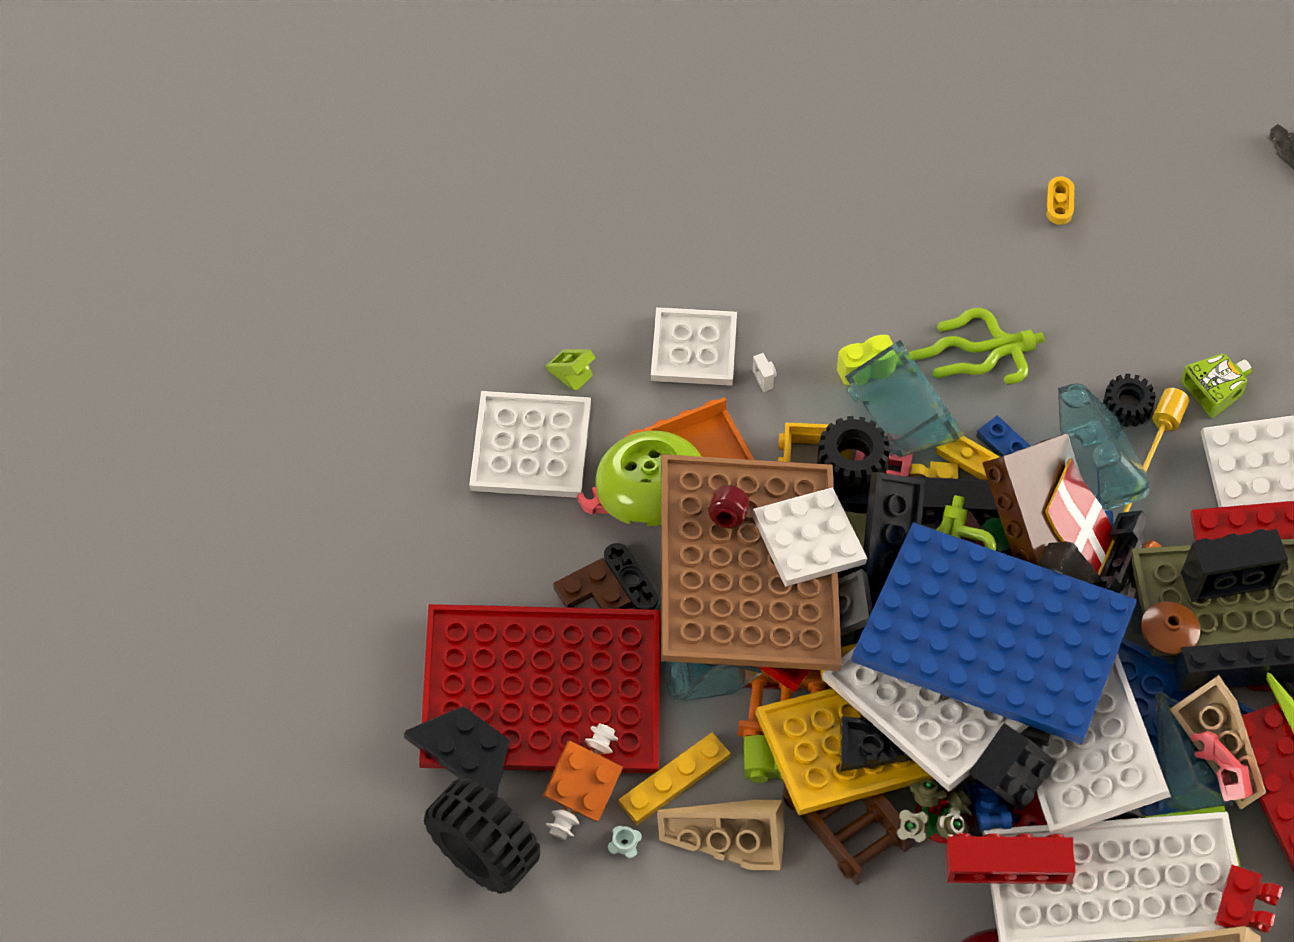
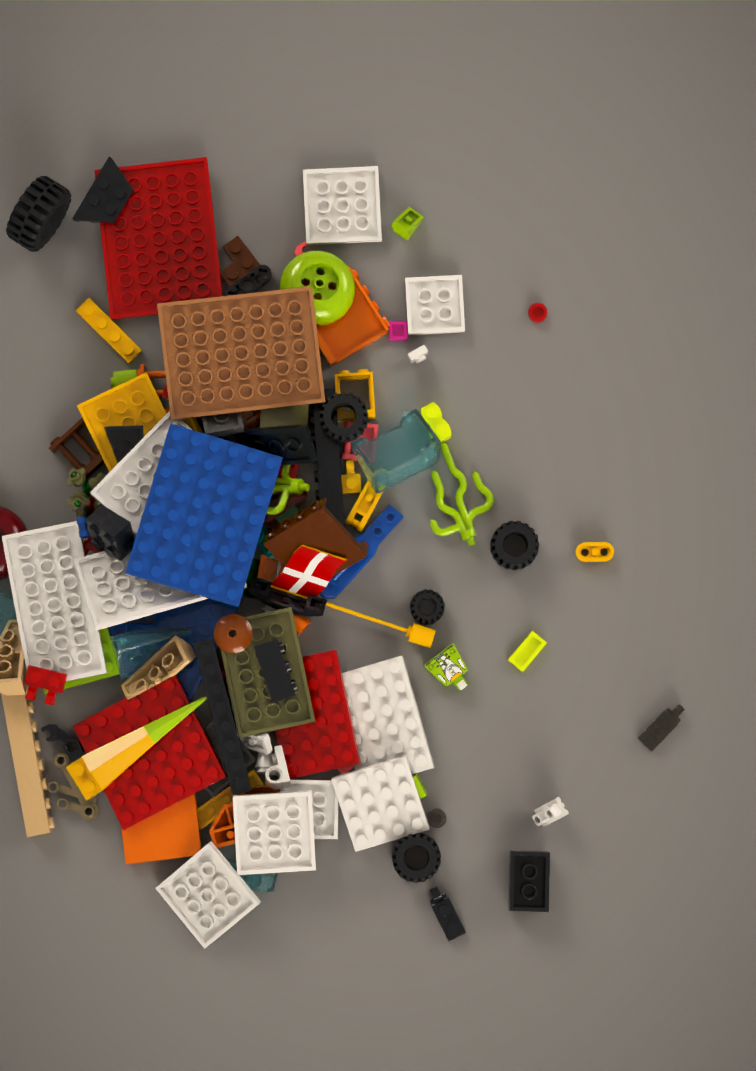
camera: 85 degrees right, 25 degrees up
(582, 781) = (92, 272): orange plate -> none
(624, 833) = (58, 300): light aqua plate -> none
(720, 232) = (537, 312): none -> red tile
(726, 390) = (398, 331): none -> dark pink tile
(728, 506) = (271, 333): dark red head -> none
(734, 831) = (76, 375): tan wedge -> none
(809, 536) = (262, 389): white plate -> none
(1010, 859) = (53, 535): red brick -> none
(1053, 268) = (526, 533): none -> black tyre
(1068, 560) = (264, 563): clear smoke slope -> none
(1119, 471) = (370, 597): clear light blue windscreen -> none
(1194, 293) = (527, 651): none -> neon yellow tile
(1217, 751) = (132, 676): coral piece -> none

